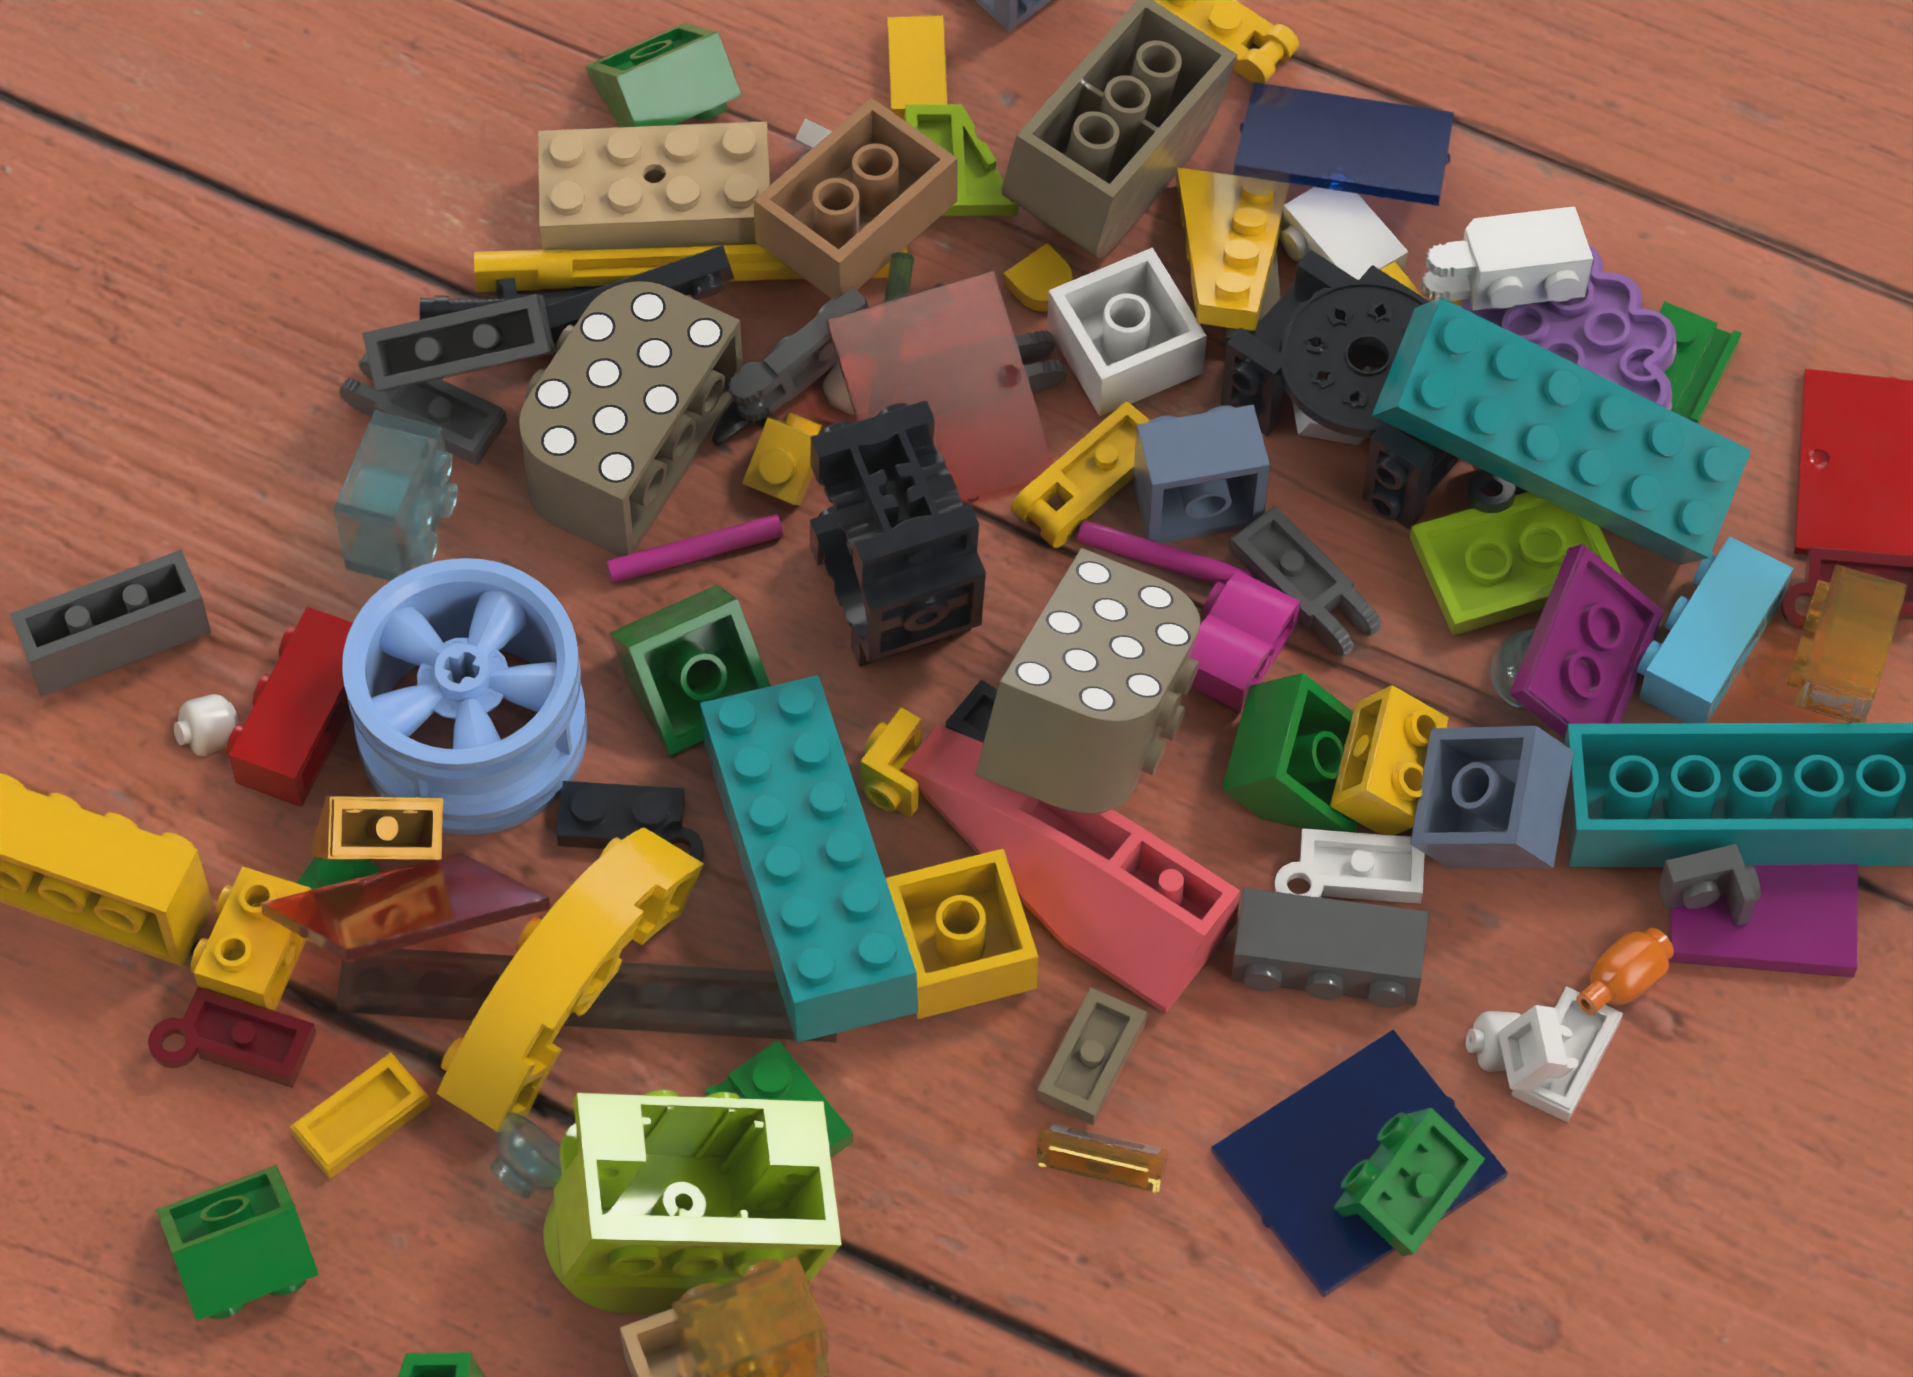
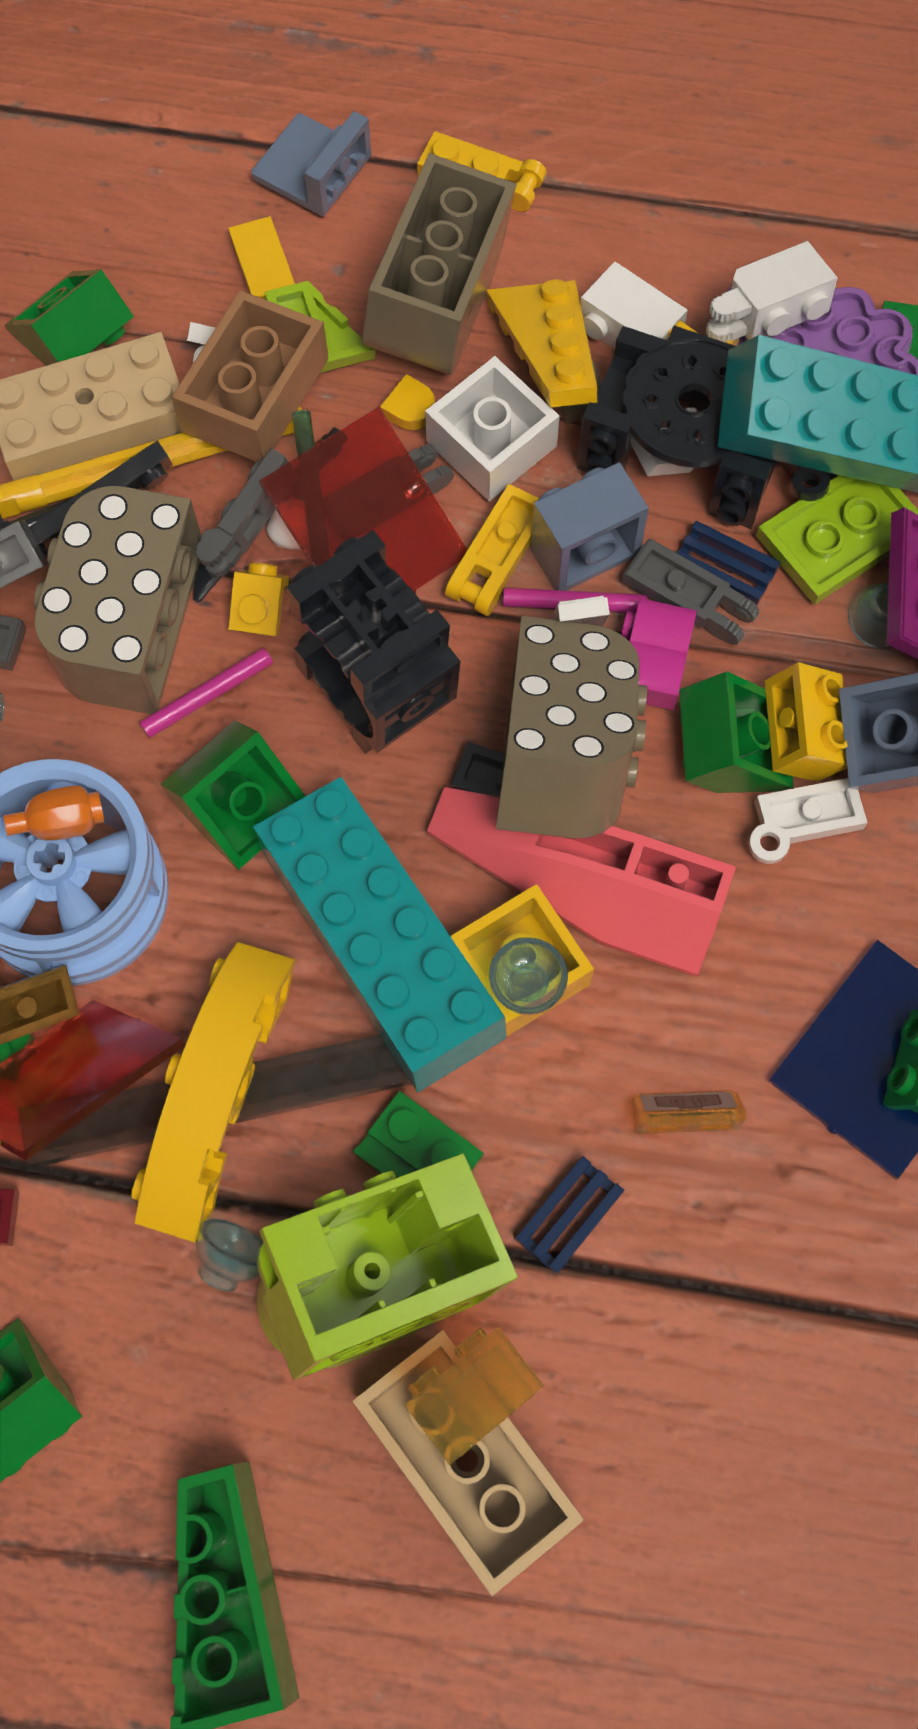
camera: 15 degrees left, 10 degrees up
(360, 1115) = (76, 1254): yellow tile -> none
(485, 622) = (57, 814): none -> orange plant
(600, 812) = (213, 931): black hinge -> none
(883, 761) = (413, 821): yellow bracket -> none
(918, 1206) = (597, 1180): none -> dark blue tile
(955, 934) = (528, 976): none -> clear light blue piece
(1091, 1056) = (653, 1032): dark tan plate -> none
(1157, 561) = (586, 611): none -> white tile
(1329, 947) = (811, 888): dark grey brick -> none
(1344, 144) = (609, 239): clear blue piece -> none
(1379, 548) = (731, 557): none -> dark blue tile

